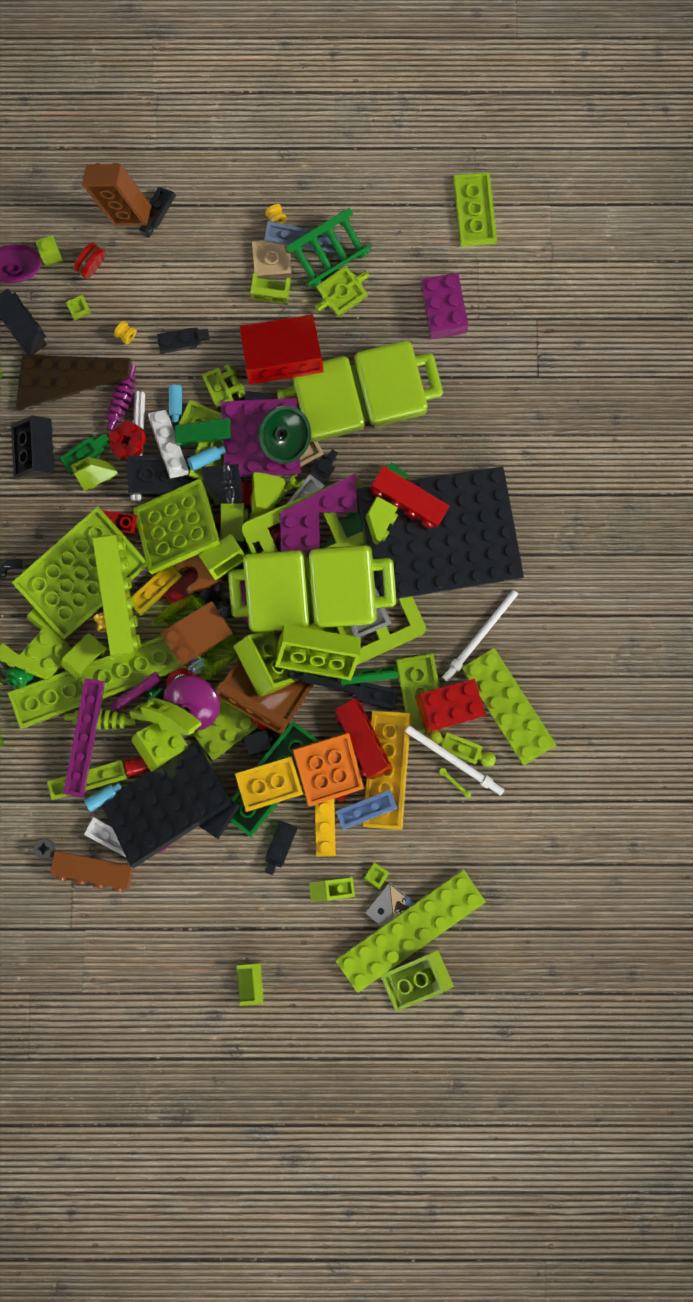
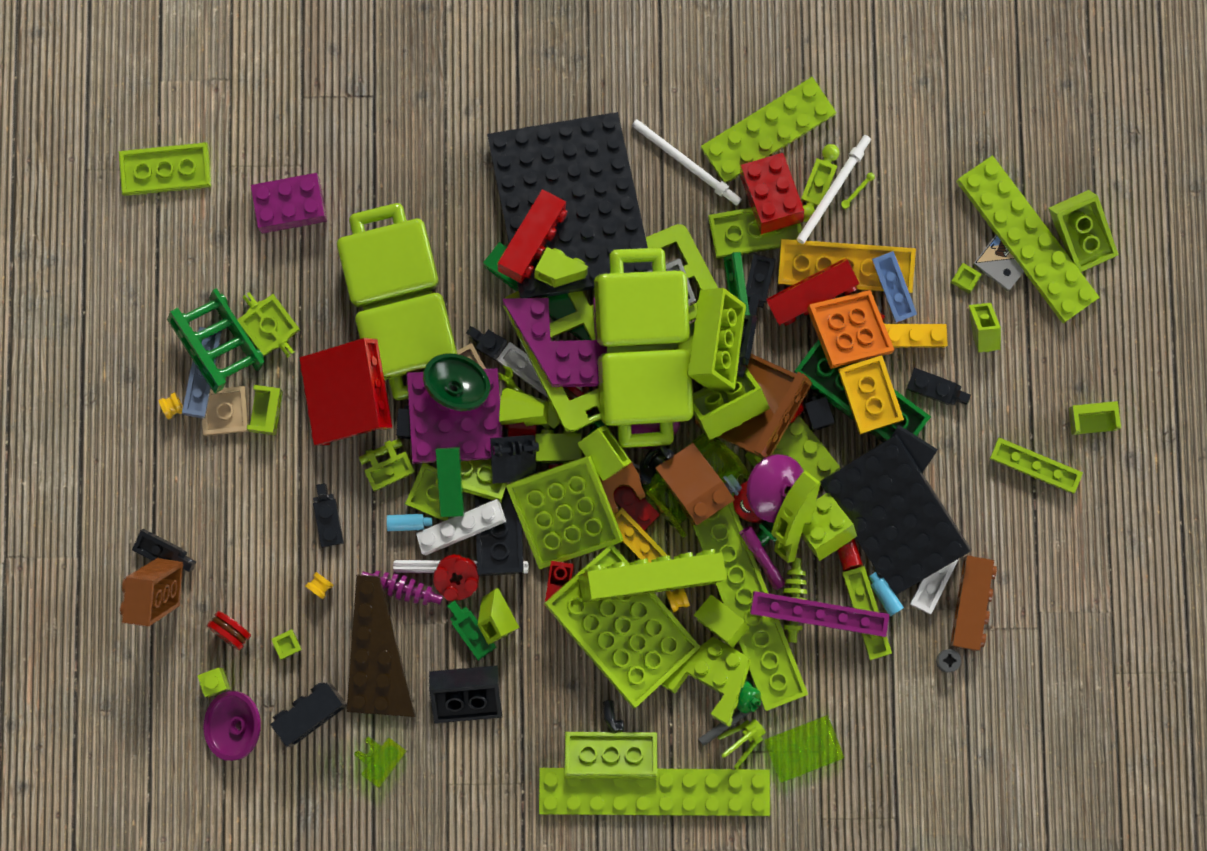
camera: 90 degrees left, 0 degrees up
(205, 457) = (481, 478): medium azure cylinder -> none
(209, 930) = (1036, 465): none -> lime plate

